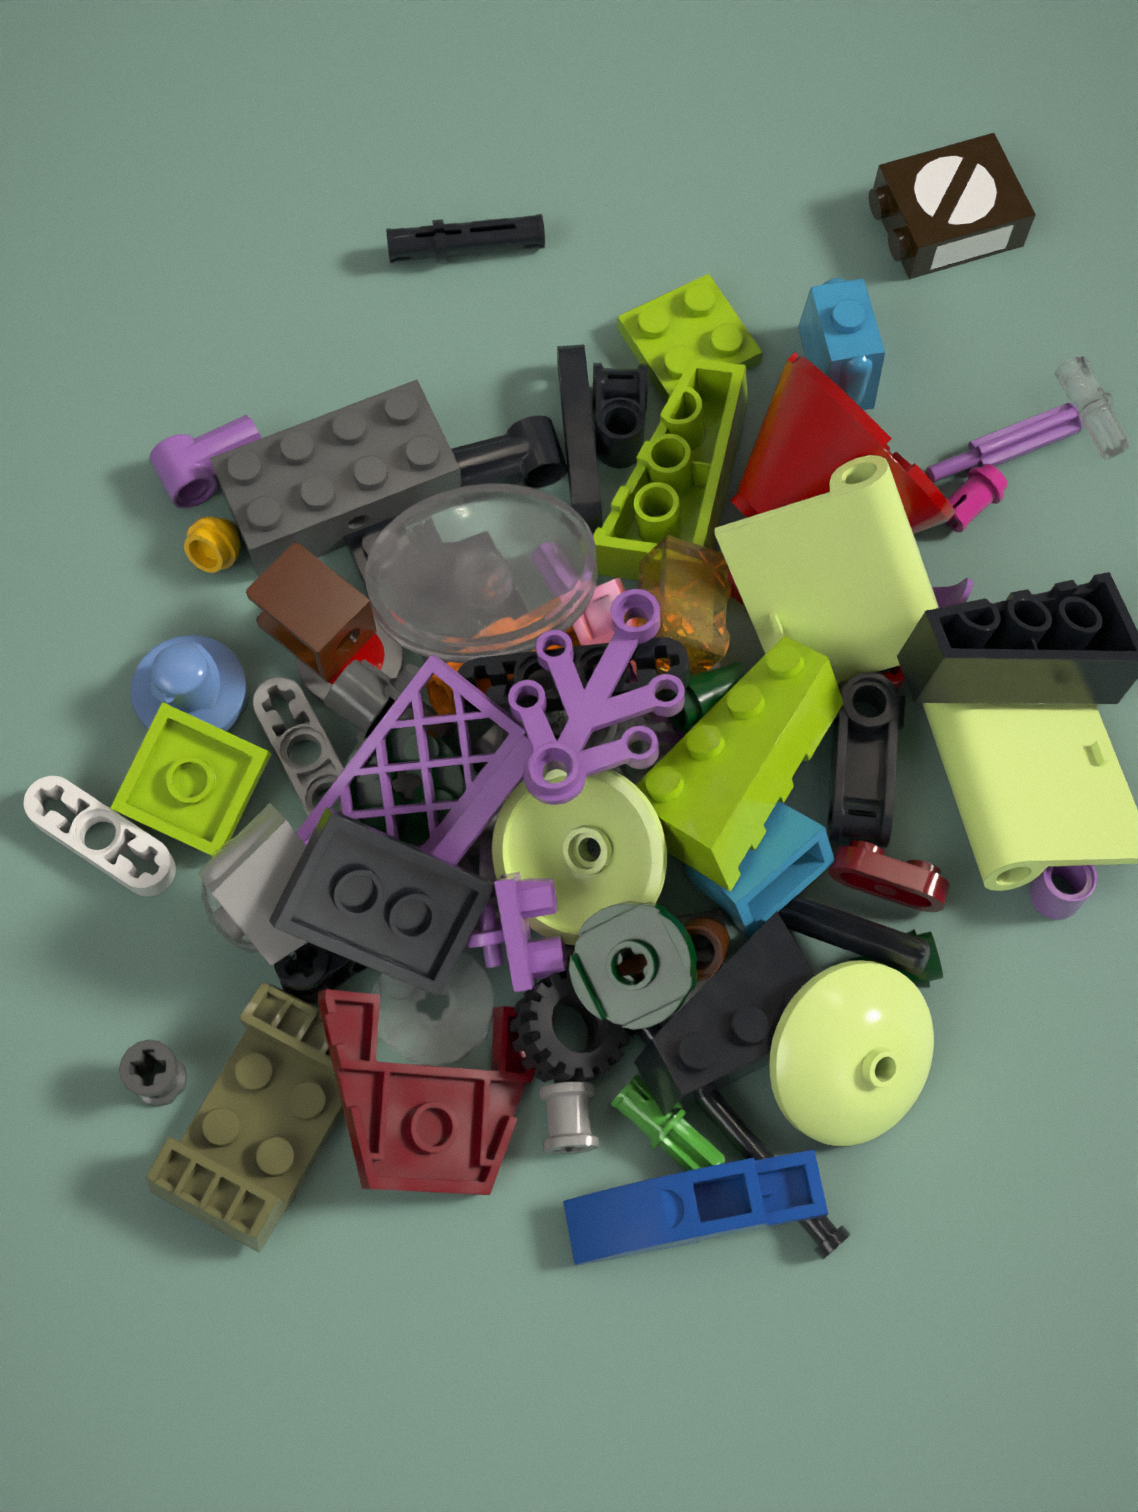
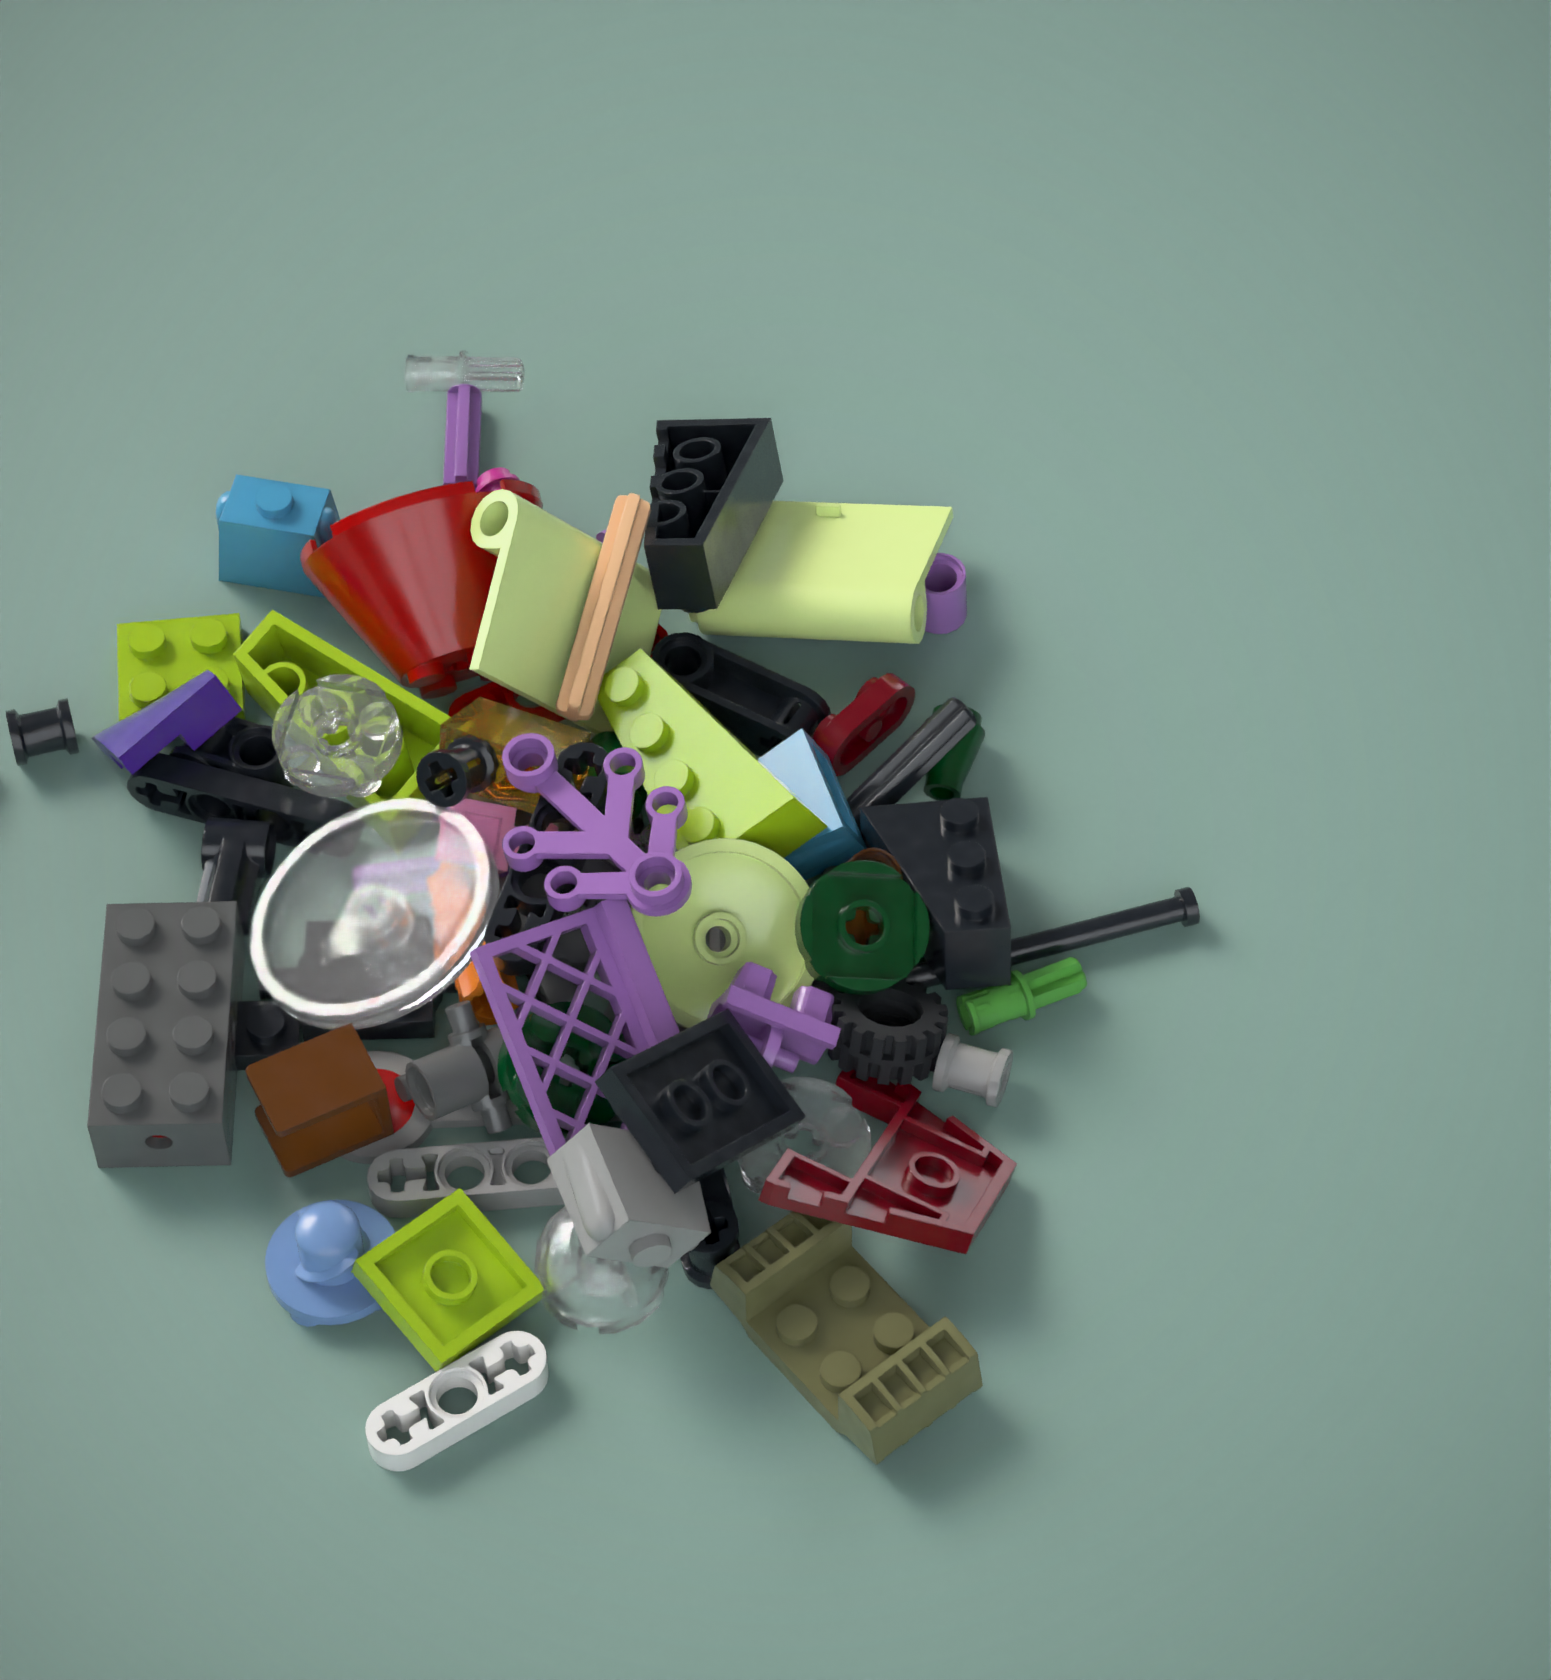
camera: 65 degrees left, 15 degrees down
(140, 1060) = (753, 1416): dark grey bush -> none
(186, 465) = (66, 1167): medium lavender piece -> none
(212, 544) = (173, 1182): yellow plate -> none
(580, 269) = (42, 732): none -> black bush
(618, 349) = (188, 712): none -> dark purple slope
(625, 565) = (461, 778): none -> black bush
(641, 496) = (345, 768): none -> clear plate
(695, 1206) = (1107, 994): blue slope -> none
(830, 1048) = (1025, 804): yellowish green dish -> none
(854, 608) = (603, 608): none -> light nougat axle
(951, 206) = (170, 391): dark brown brick -> none

